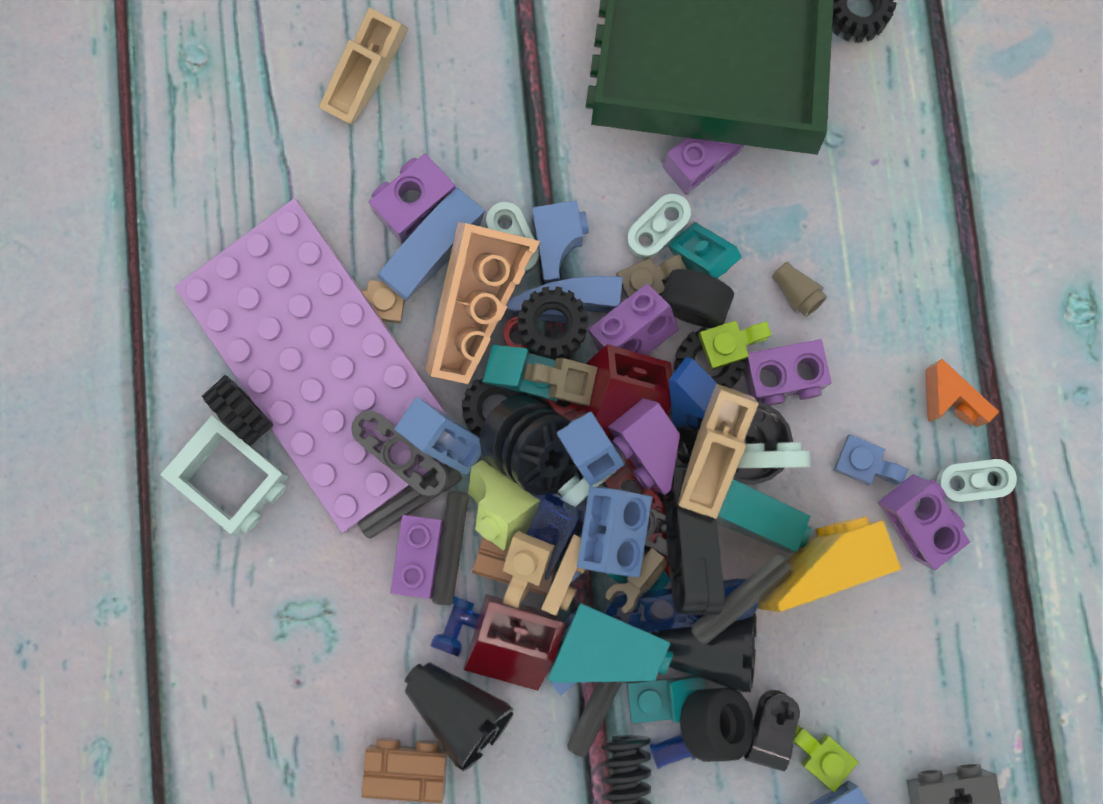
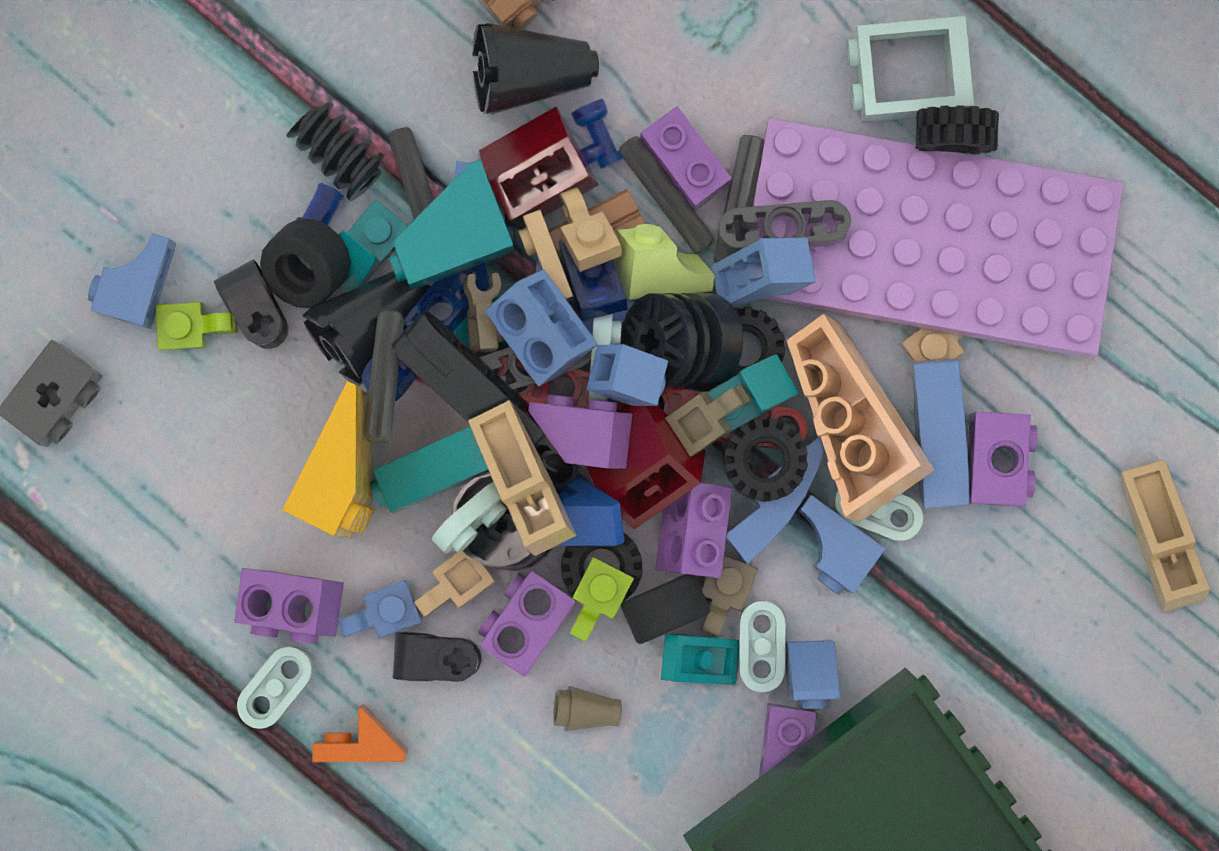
camera: 140 degrees right, 5 degrees up
(646, 178) = (812, 673): none -> medium blue slope
(808, 433) = (458, 579): none -> tan plate
(865, 408) = (426, 657): none -> black piece

